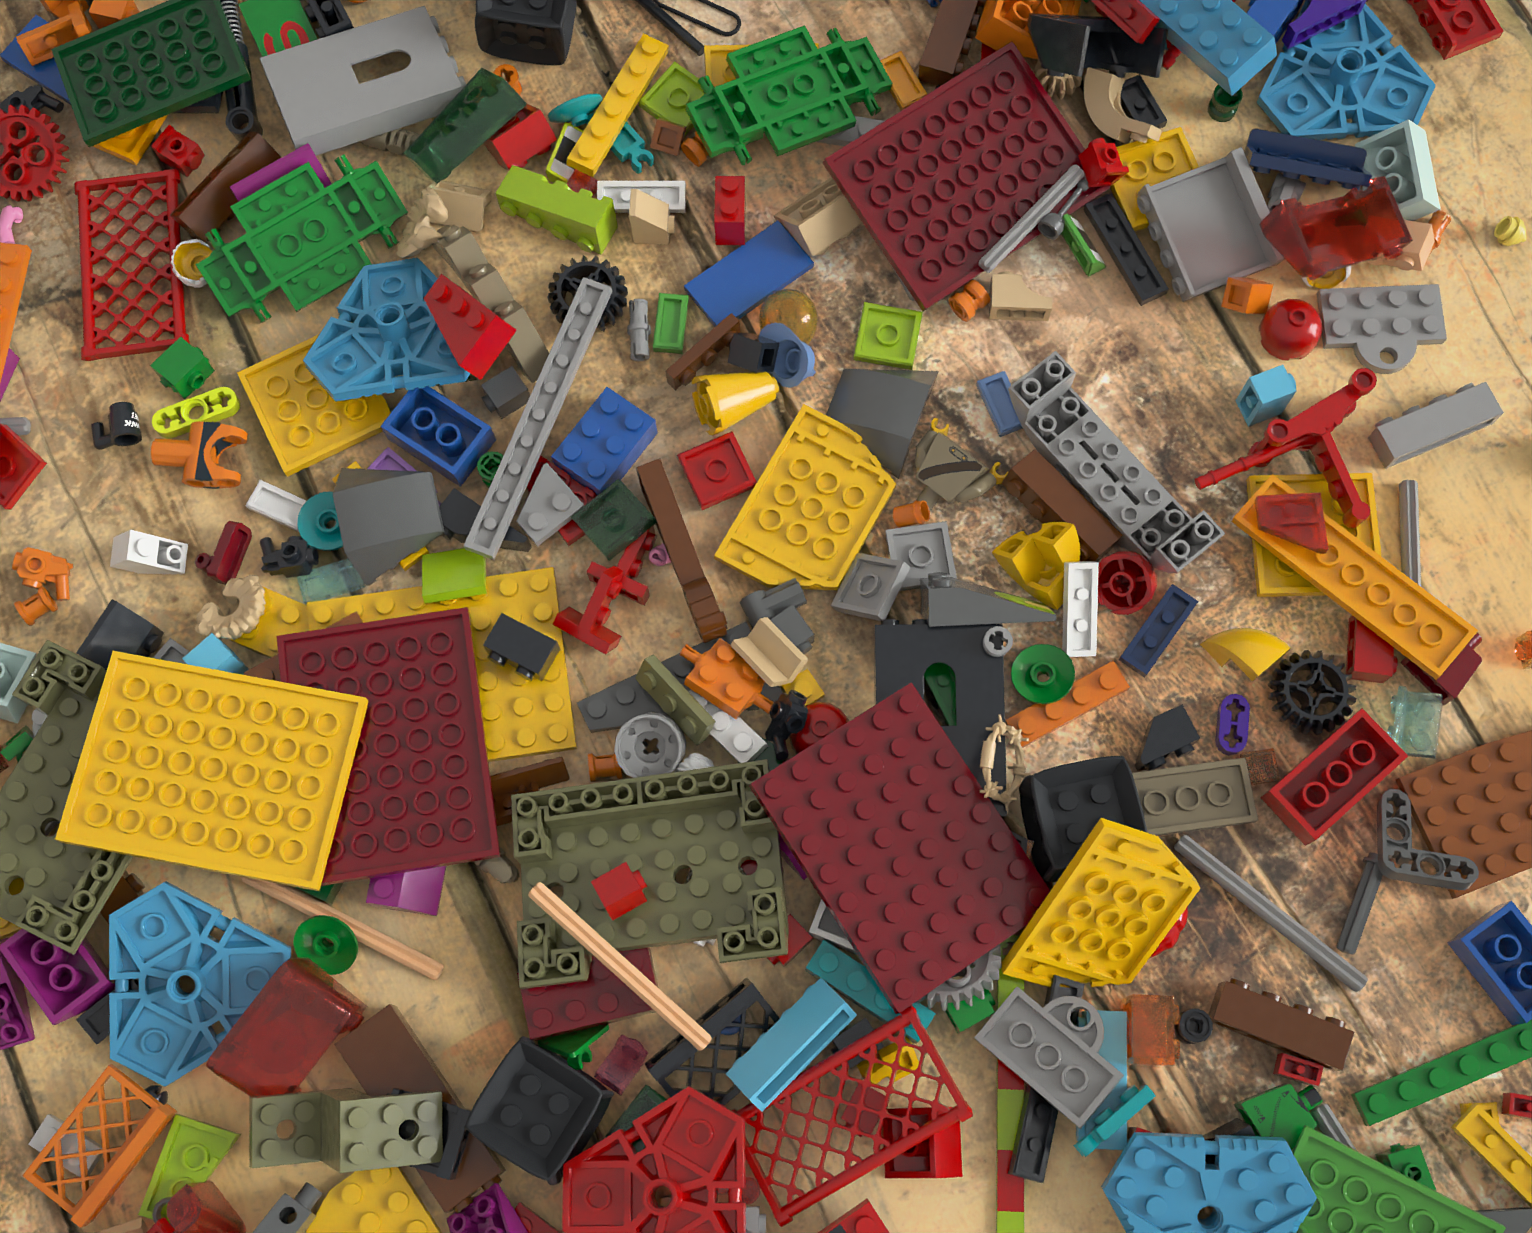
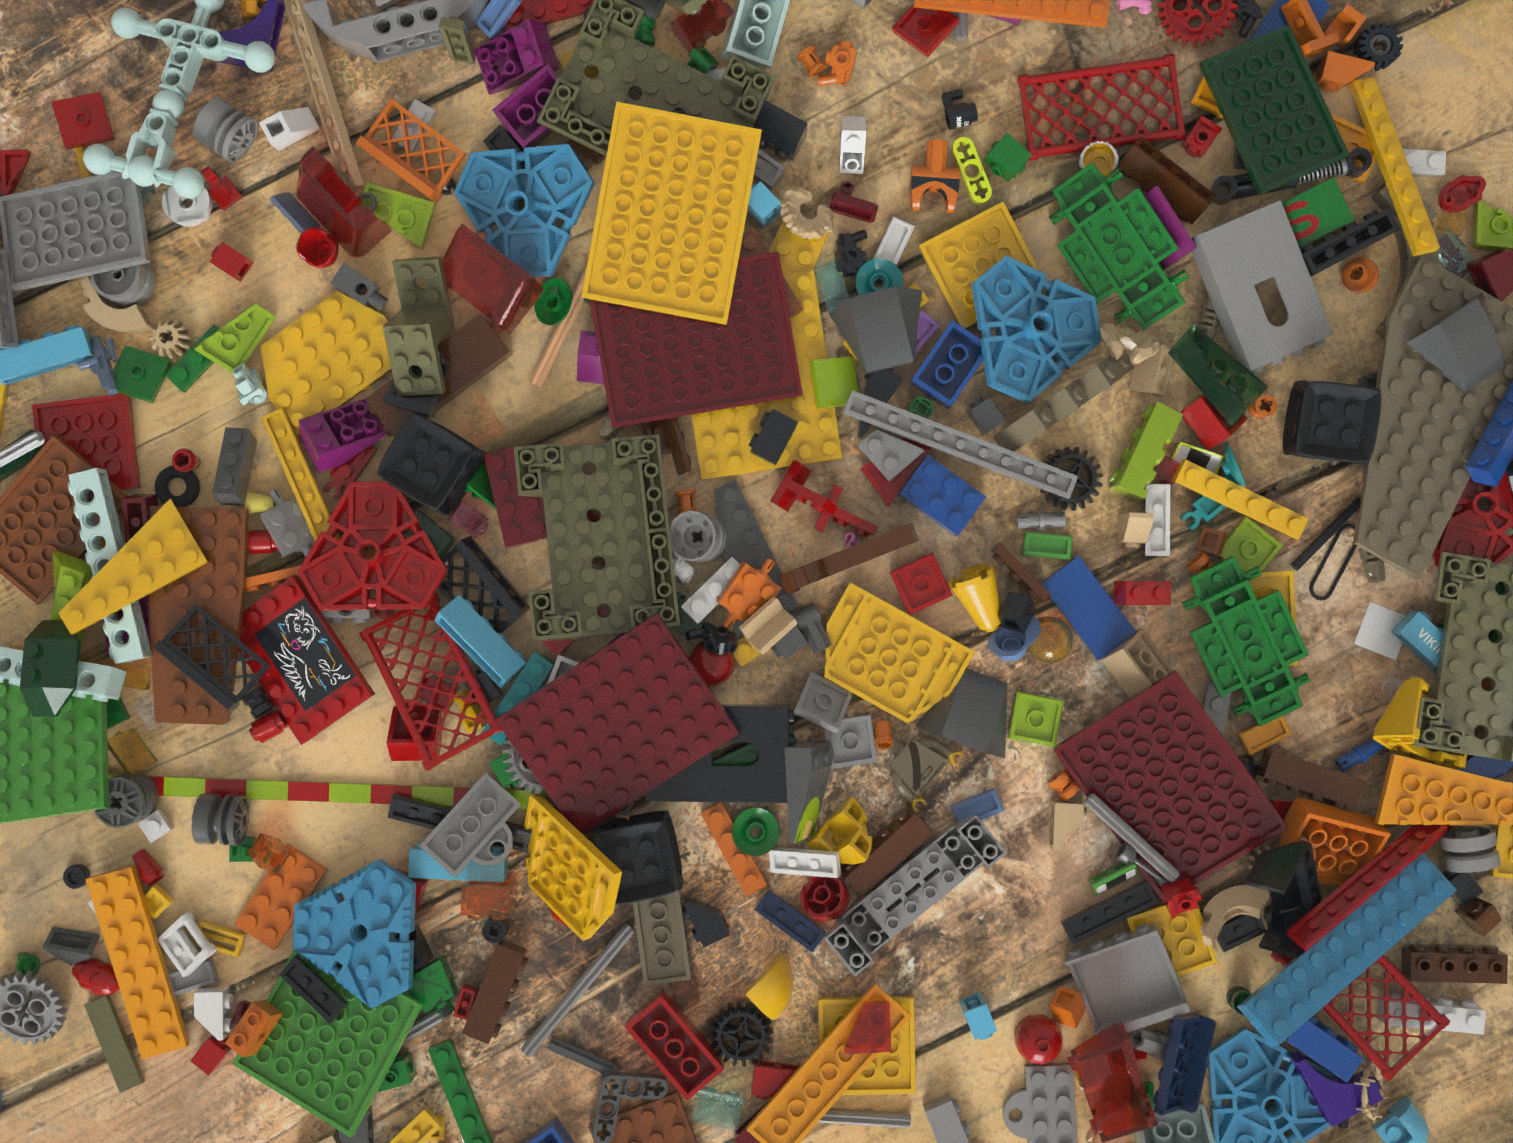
camera: 90 degrees right, 15 degrees up
(468, 326) = (1029, 386): red wedge -> none
(614, 519) = (876, 504): clear green plate -> none
(619, 966) = (529, 518): light nougat axle -> none
(620, 890) = (583, 518): red brick -> none
(675, 699) = (732, 554): olive plate -> none
(987, 760) = (682, 790): tan piece -> none
(989, 646) = (777, 805): light grey bush -> none
(1111, 1120) = (425, 868): teal plate -> none
(1225, 724) = (718, 978): dark purple beam -> none
(1311, 432) = (946, 1048): red piece -> none

